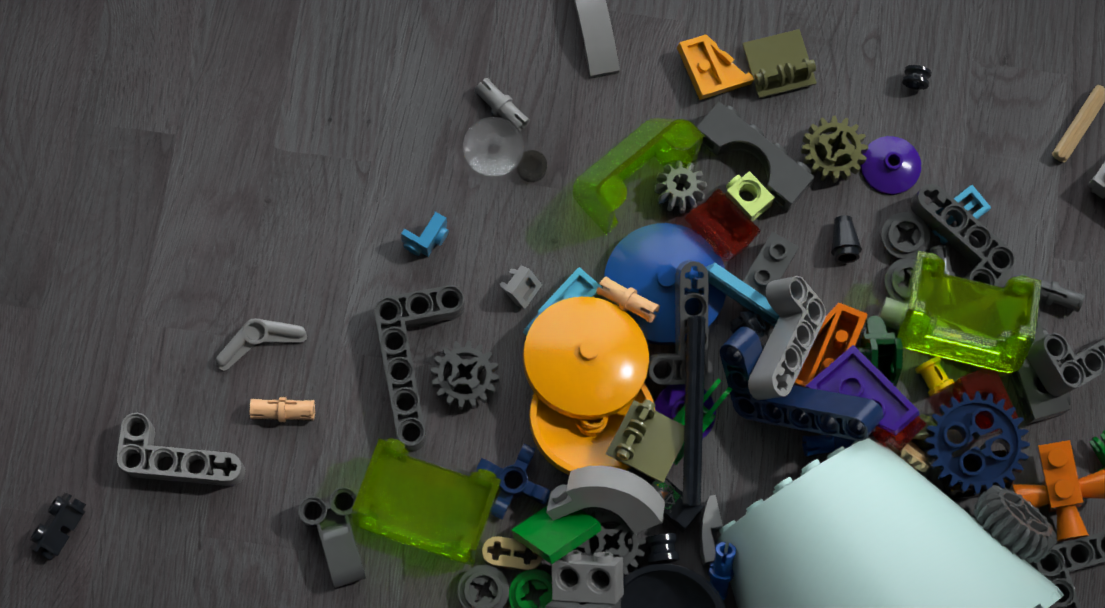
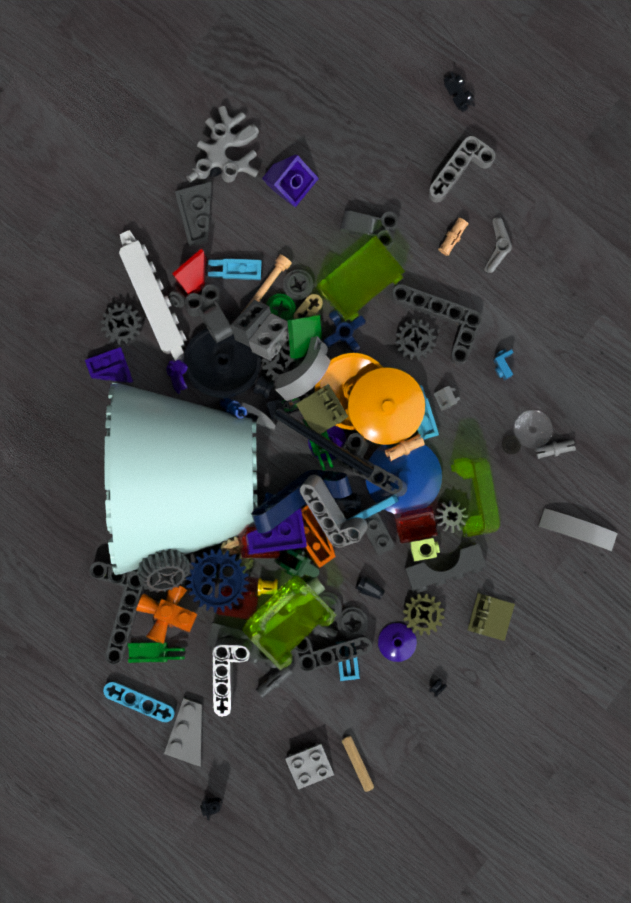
camera: 130 degrees right, 10 degrees up
(711, 68) = (510, 576): light orange wing -> none

